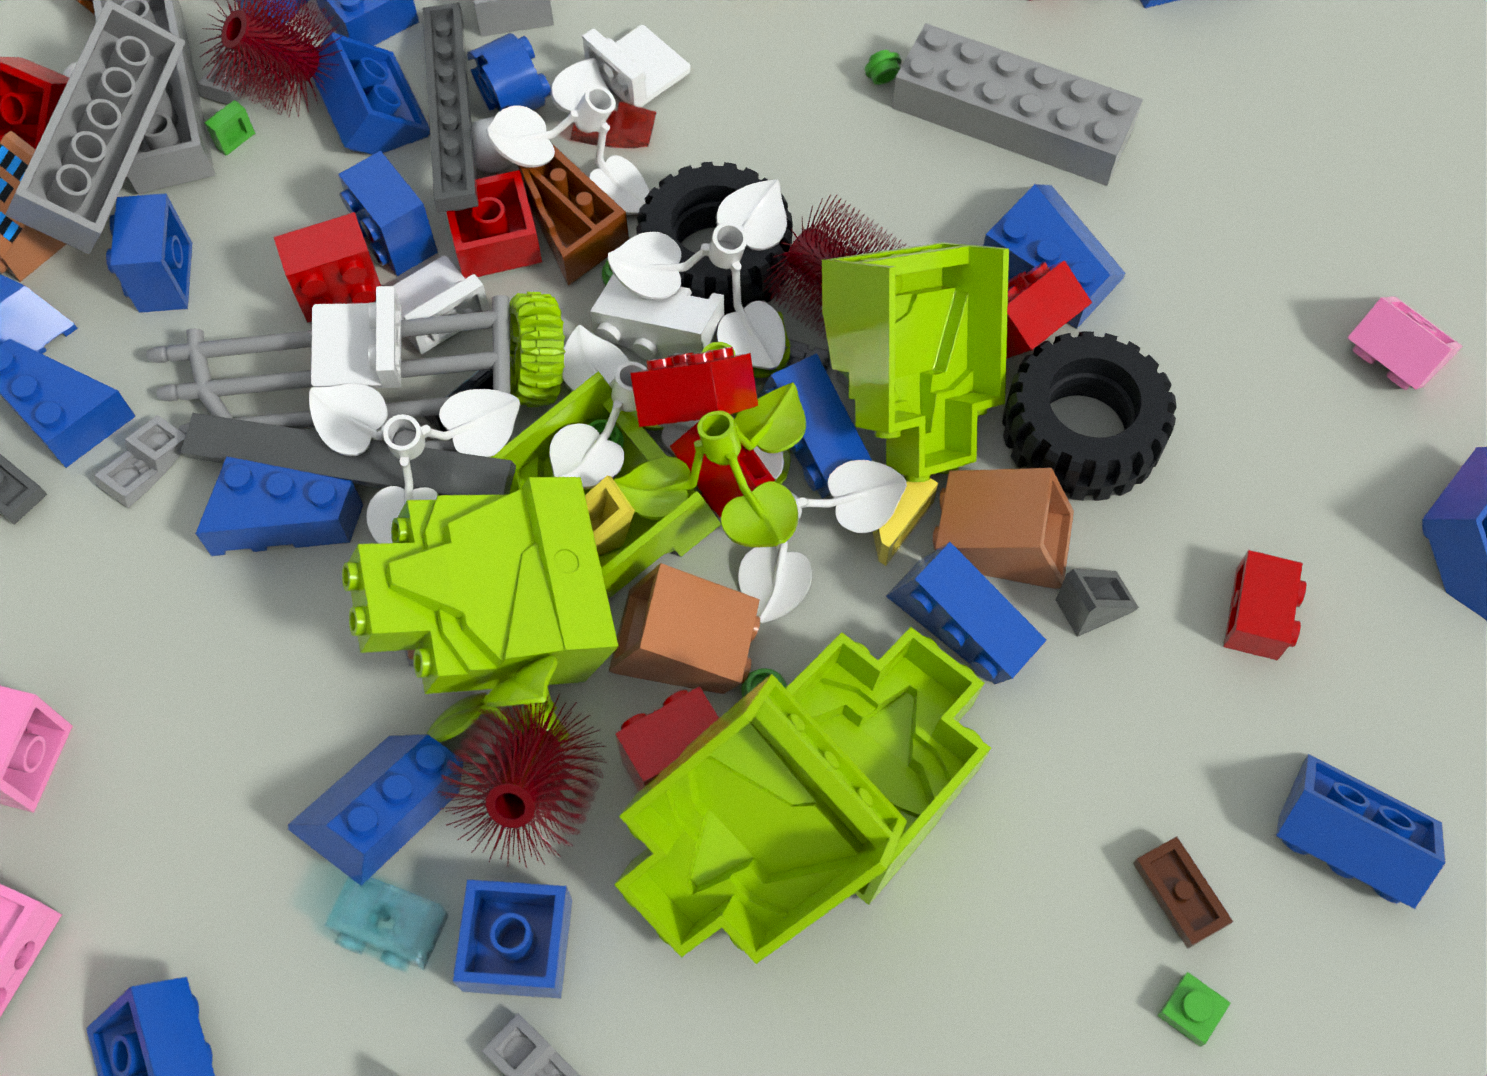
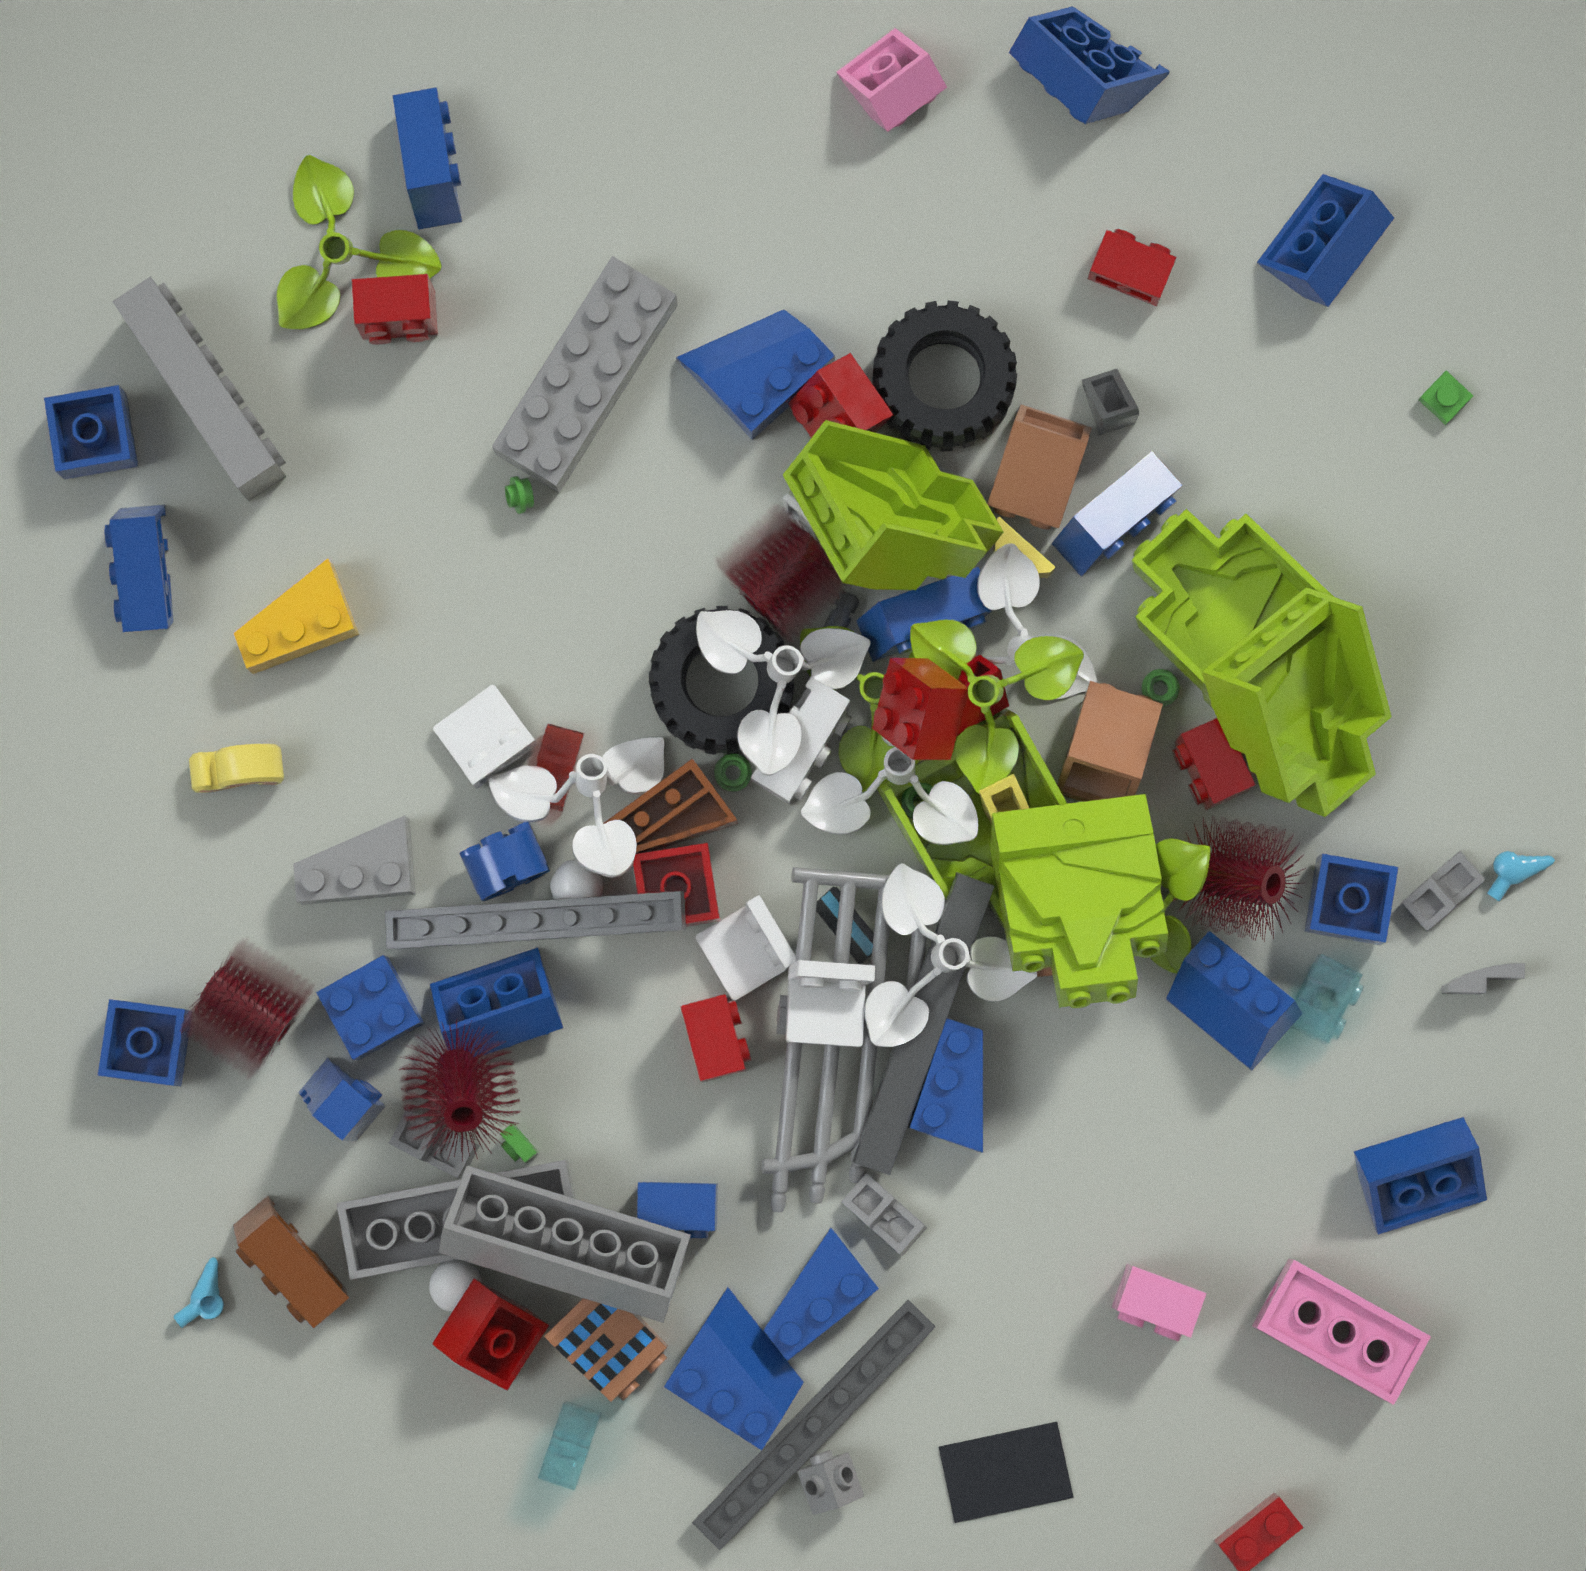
camera: 80 degrees left, 20 degrees up
(388, 213) = (658, 984): blue brick -> none
(536, 348) = (830, 847): lime gear -> none
(1182, 892) = (1360, 387): reddish brown plate -> none

